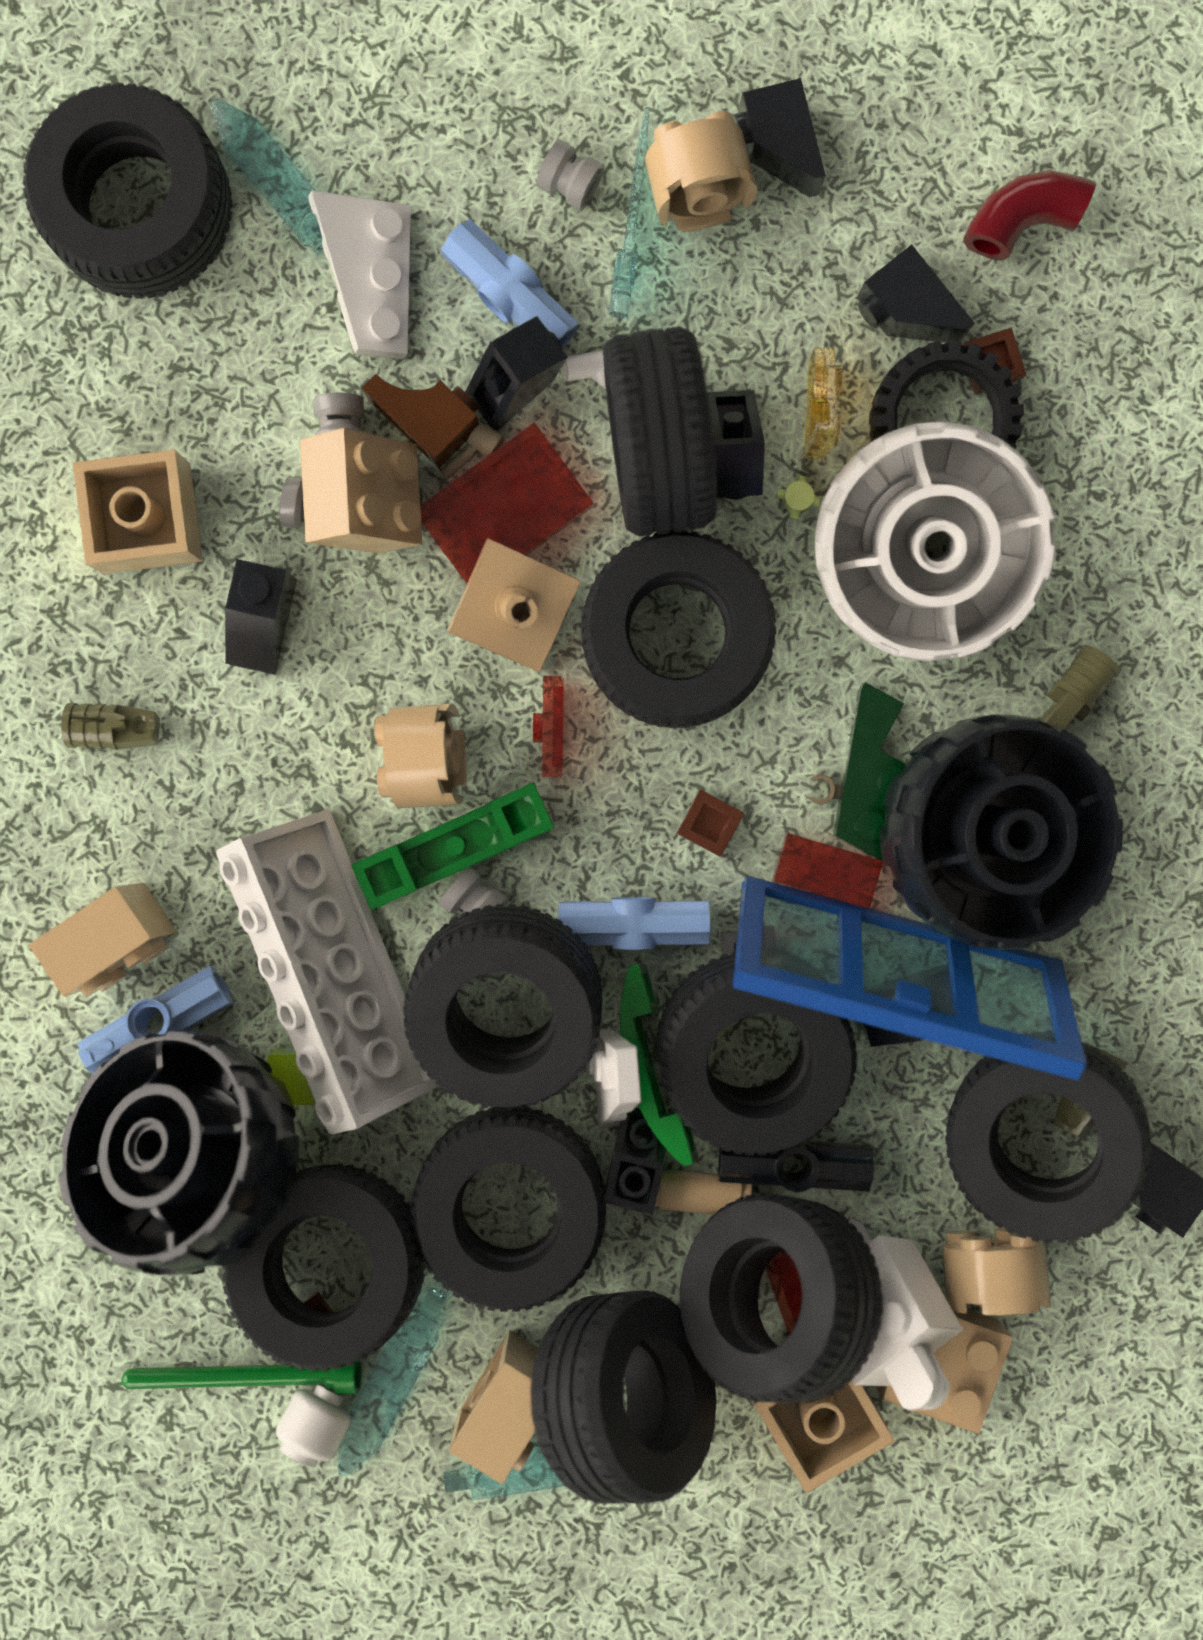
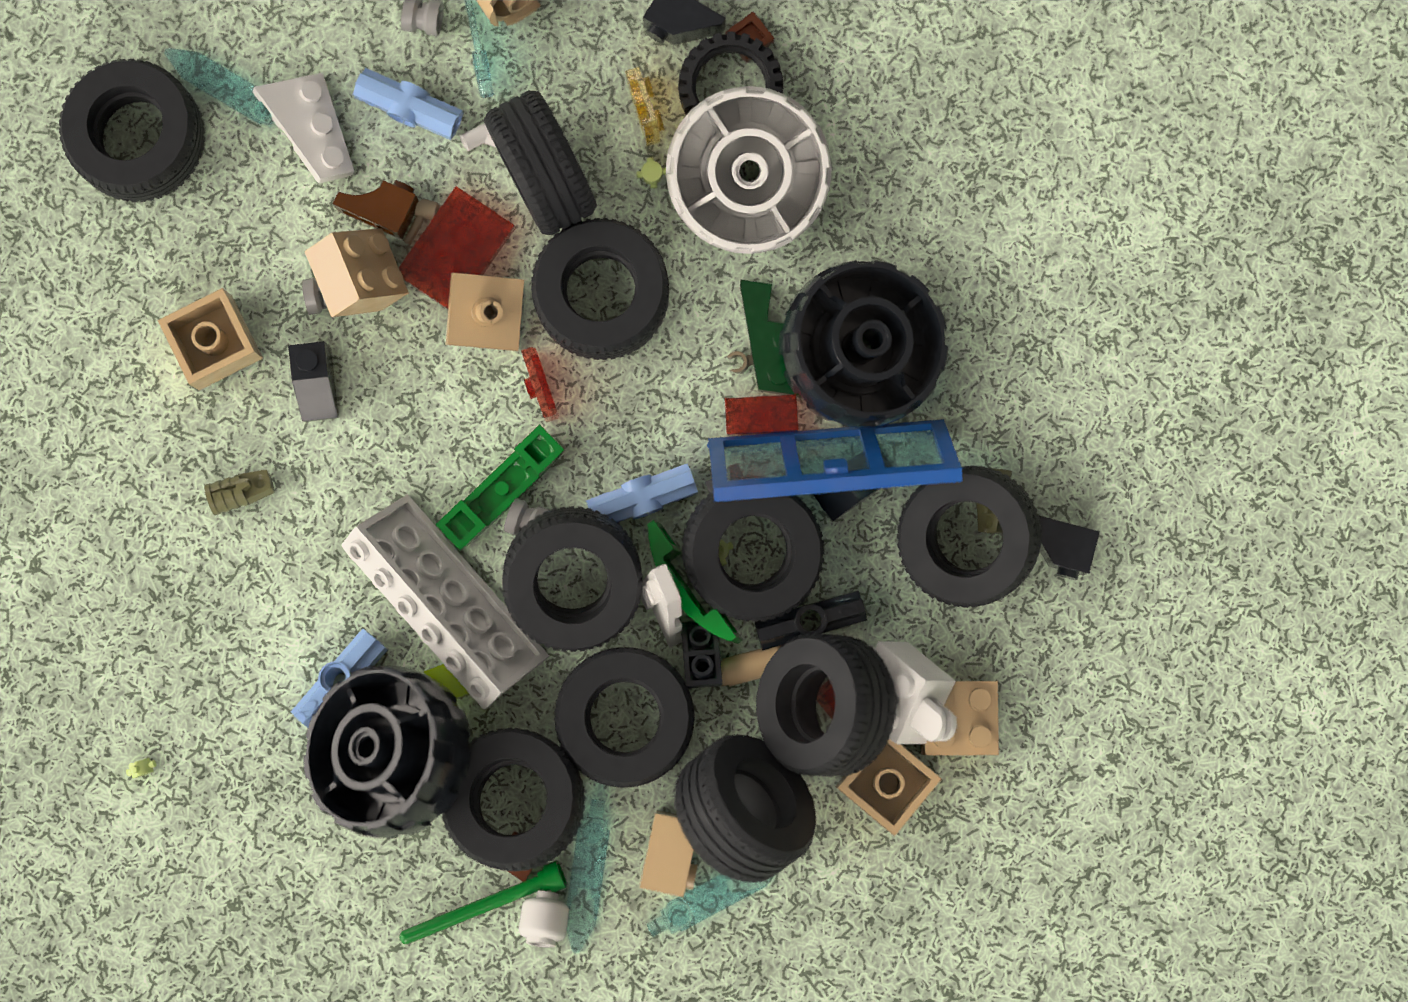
camera: 15 degrees left, 5 degrees down
(102, 939) = (286, 632): tan brick -> none
(338, 411) = (321, 225): light grey wheel -> none
(421, 756) = (458, 433): tan brick -> none
(515, 371) = (431, 157): black slope -> none
(710, 823) = (670, 411): copper plate -> none
(737, 444) = (595, 153): black slope -> none
(998, 1273) = (971, 642): tan brick -> none
(1080, 687) = (887, 230): olive hinge -> none

